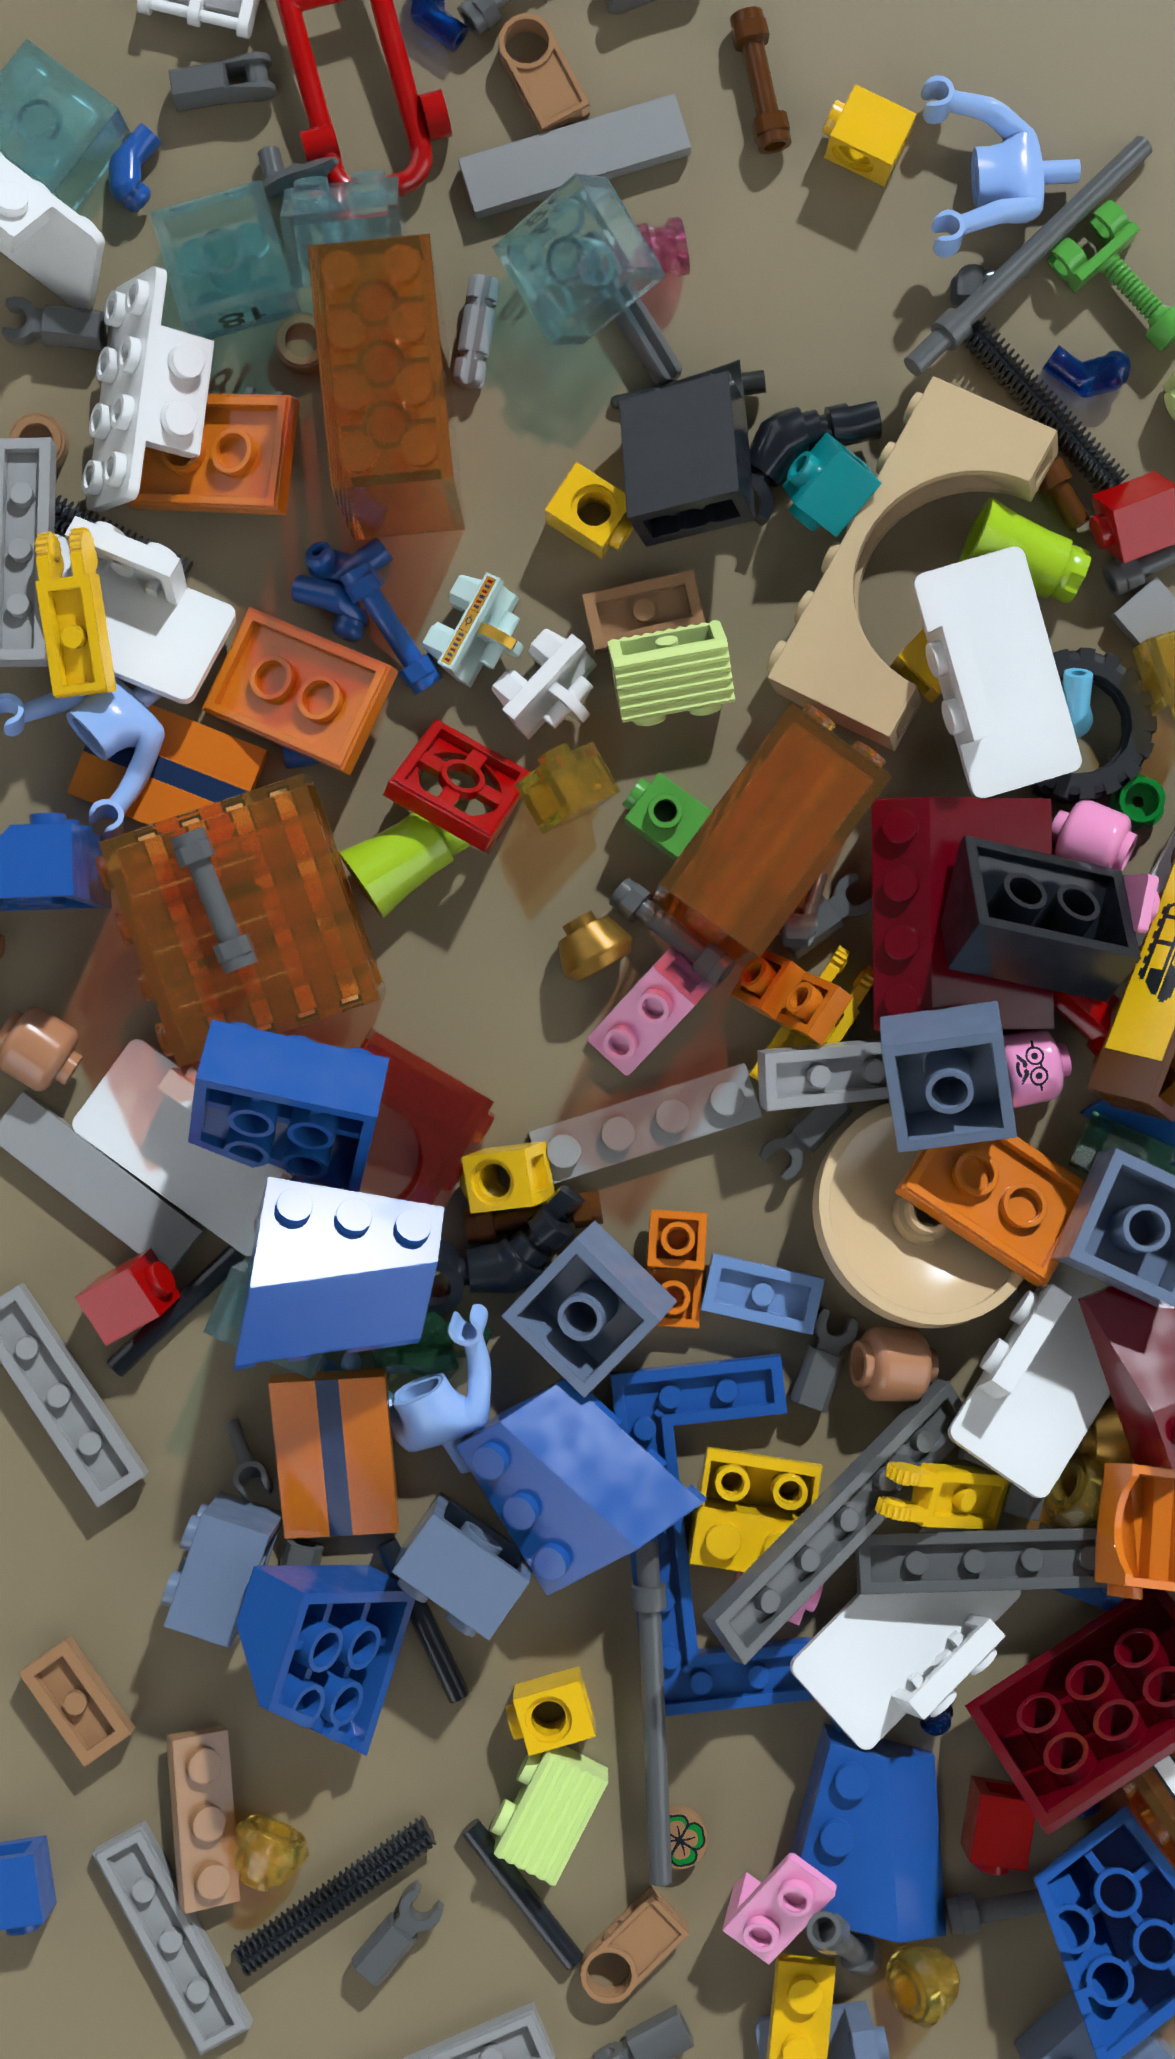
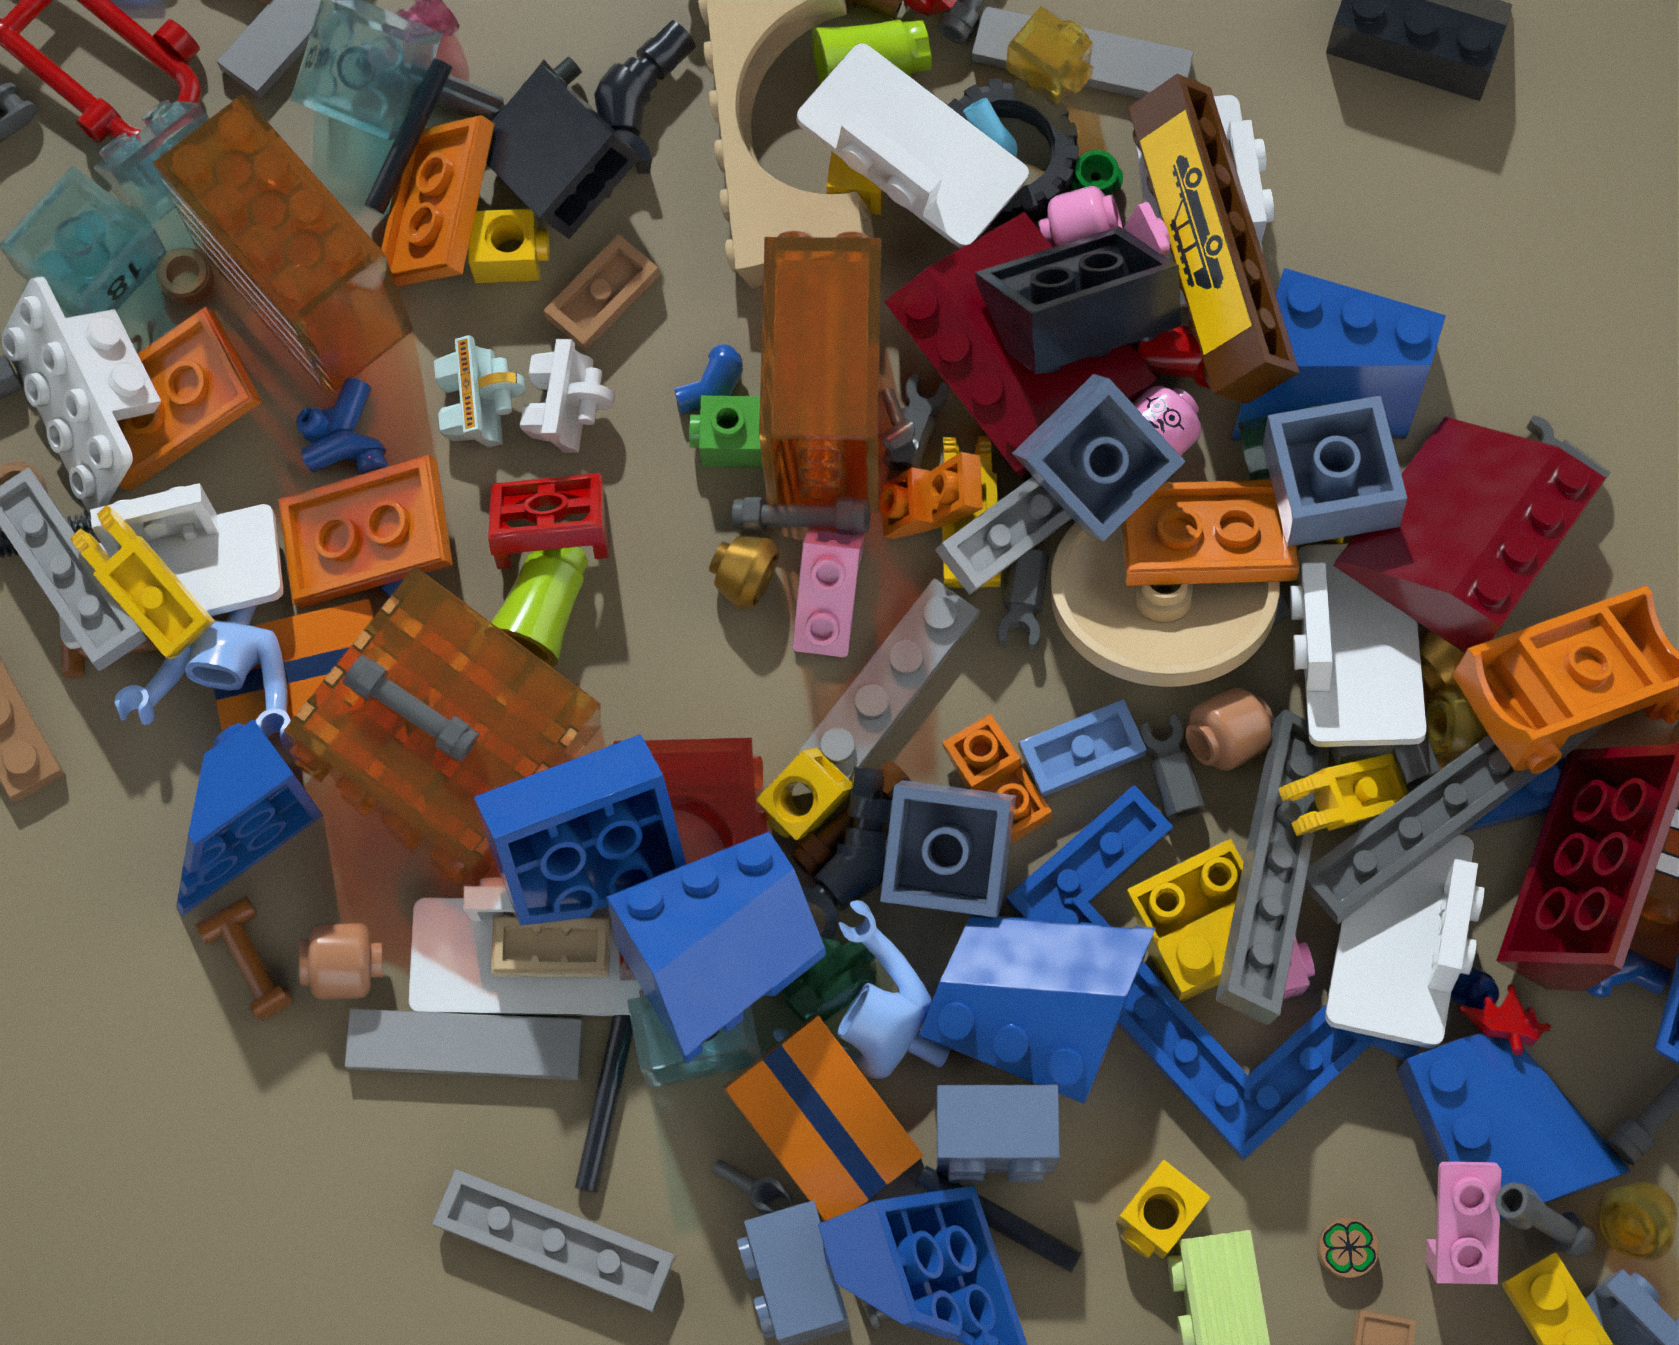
camera: 30 degrees left, 15 degrees down
(128, 1296) = (557, 1108): red brick -> none
(223, 1178) = (551, 948): none -> tan plate
(279, 178) = (65, 158): dark grey bar -> none
(364, 585) = (363, 416): blue bar -> none
(476, 331) = (307, 147): light grey axle -> none
(555, 430) = (437, 202): none -> orange tile
(566, 786) = (635, 458): clear yellow brick -> none
(574, 350) = (408, 136): none -> black bar
(649, 1600) = (1171, 1051): dark grey bar -> none
(671, 673) = (658, 319): yellowish green brick -> none
(686, 760) = (718, 379): none -> blue arm
(828, 485) = (680, 101): teal brick -> none
(937, 1759) = (1507, 1021): none -> red piece
(997, 1827) = (1600, 1042): red brick -> none

